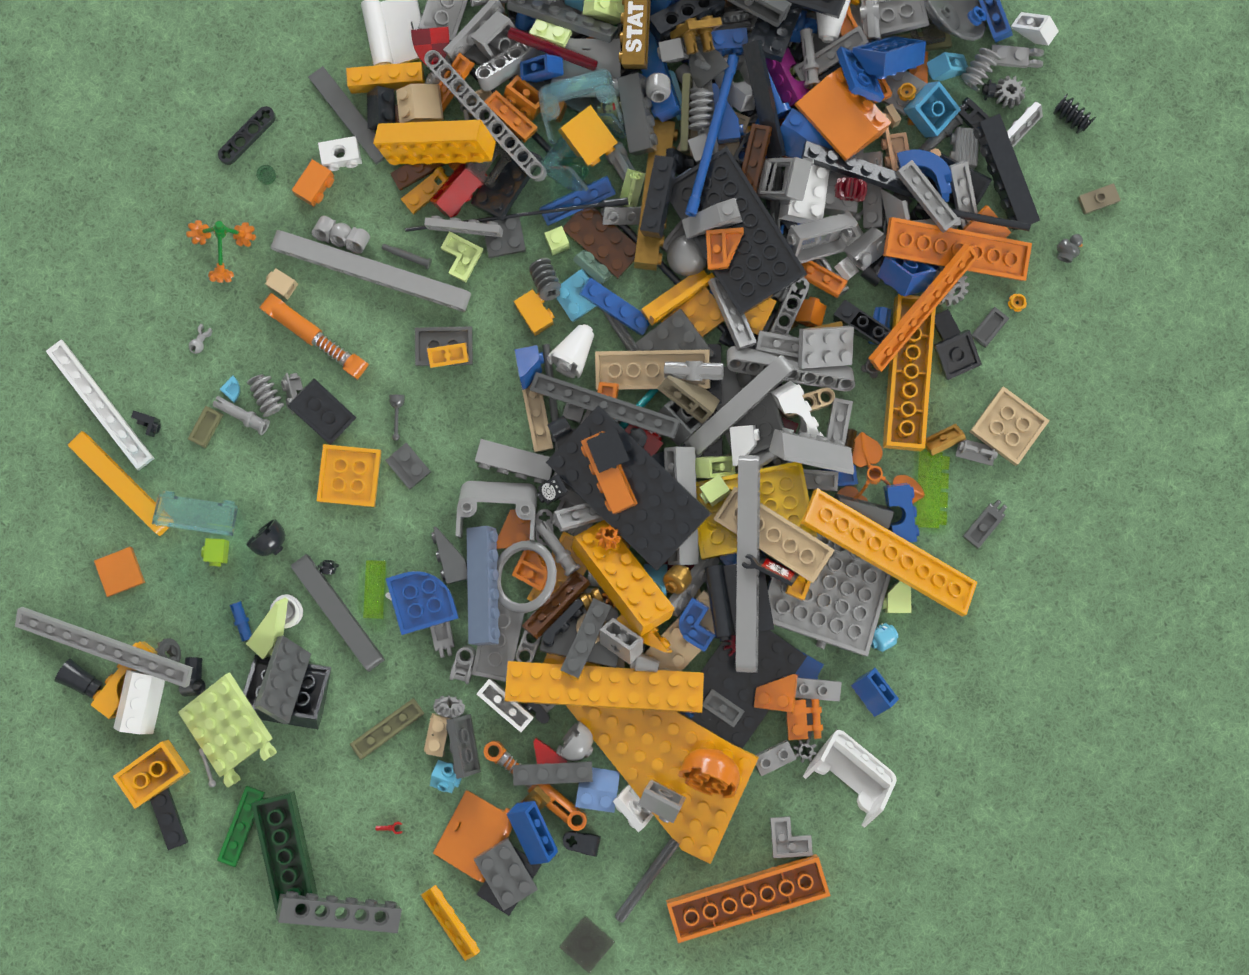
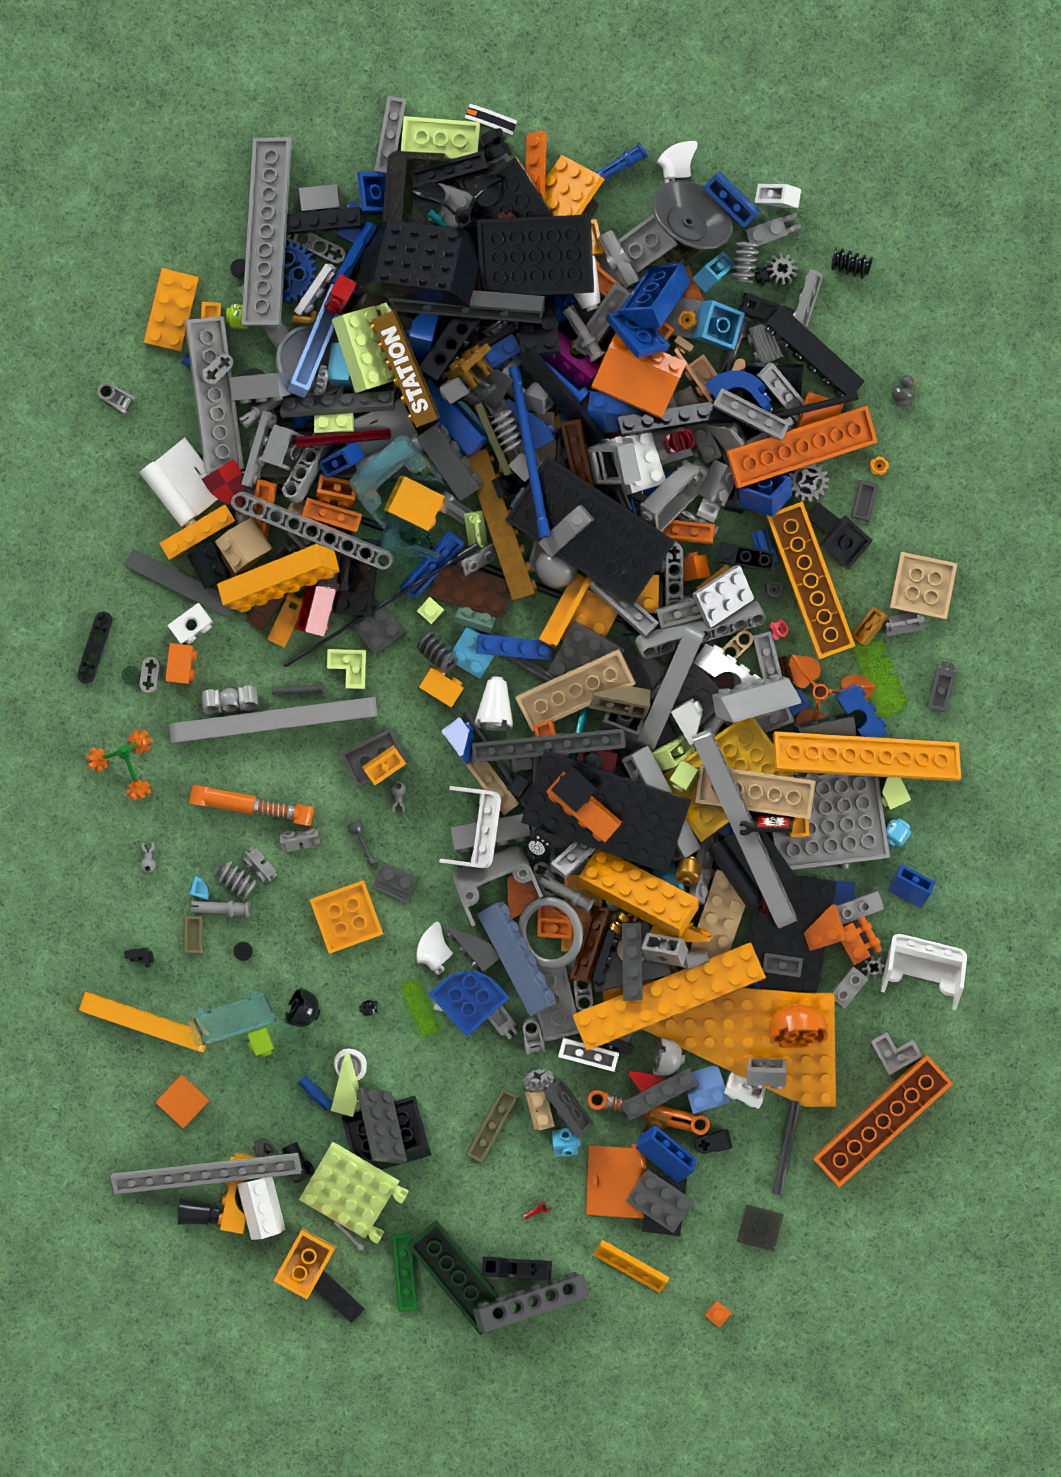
camera: 25 degrees left, 5 degrees up
(100, 405) = (88, 960): white plate -> none
(241, 462) = (243, 951): none -> black plate
(279, 178) = (145, 673): none -> light grey beam
(281, 283) = (197, 771): tan brick -> none
(321, 411) = (294, 870): black tile -> none
(335, 384) = (308, 836): none -> light grey hinge
(337, 612) = (397, 1044): dark grey beam -> none
(342, 872) = (516, 1268): none -> black arch
(412, 542) = (433, 949): none -> white arm
(449, 388) = (398, 792): none -> light grey arm
(471, 227) = (347, 636): light grey plate -> none
(508, 453) = (486, 828): none -> white windscreen
(607, 537) = (609, 864): orange gear -> none
(658, 87) = (458, 430): light grey head -> none
(658, 196) = (507, 531): black brick -> none
(690, 626) = (720, 908): blue plate -> none
(694, 370) = (614, 676): light grey piece -> none
(722, 246) = (587, 552): orange wing -> none
(860, 403) = (779, 629): none -> coral plate
(923, 307) = (794, 518): orange plate -> none
(976, 16) = (721, 211): blue bush -> none
(1099, 198) = (910, 330): dark tan plate -> none

